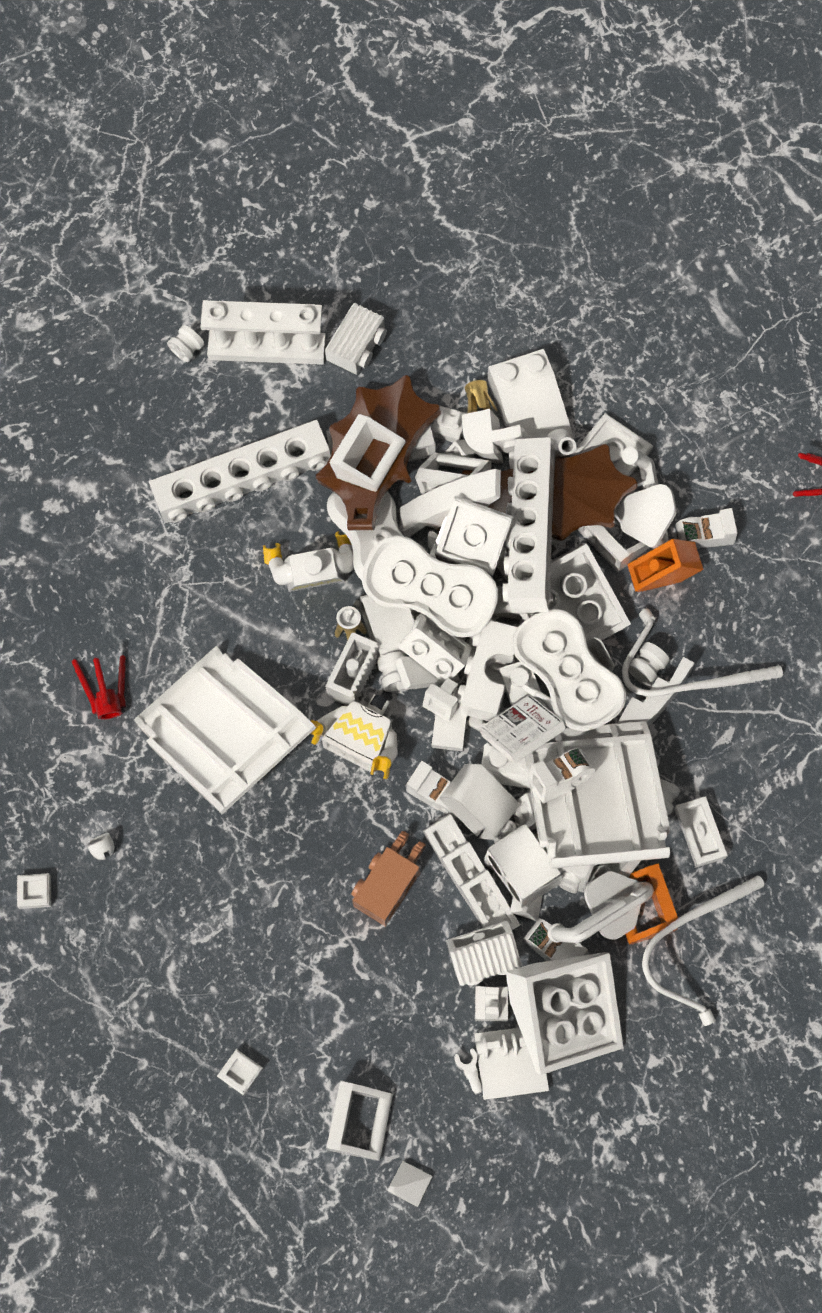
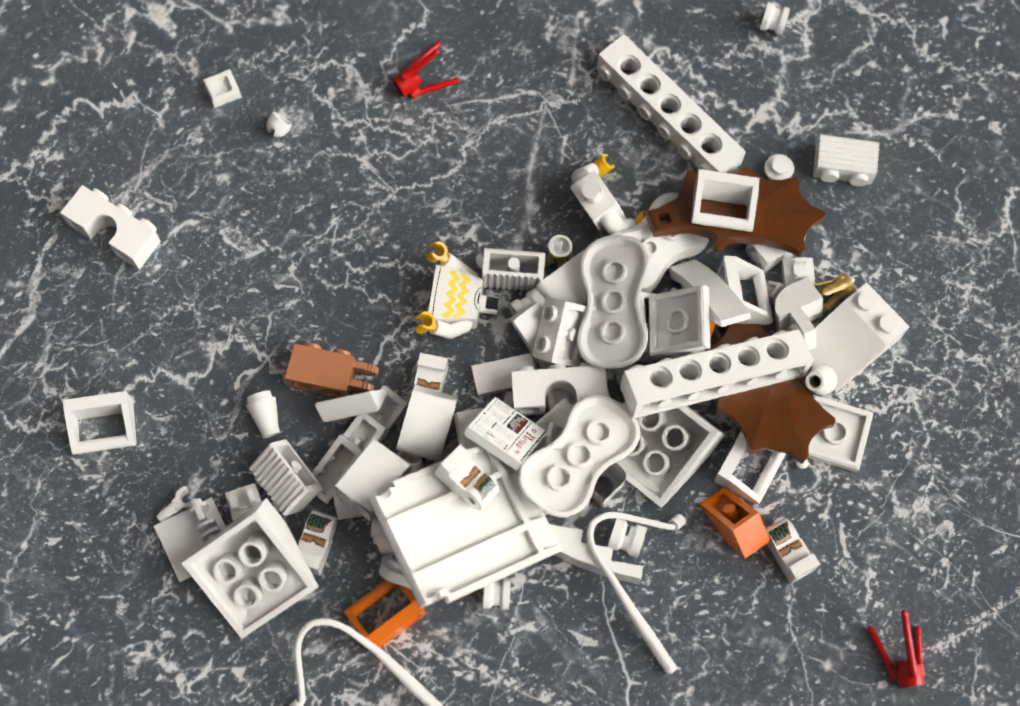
camera: 65 degrees right, 0 degrees up
(123, 1062) = (91, 211): none -> white arch
(222, 728) = (414, 178): white piece -> none
(240, 1072) = (116, 310): white tile -> none
(264, 332) = (811, 73): white fence -> none
(339, 399) = (779, 167): none -> white plate
(408, 955) = (264, 413): none -> white cone
(409, 1184) = (58, 486): white slope -> none
(434, 865) = (351, 405): none -> white slope
(442, 700) = (515, 356): white tile -> none
(613, 905) = (368, 580): white piece -> none
(649, 511) = (783, 484): white piece -> none
(700, 832) = (475, 643): white plate -> none

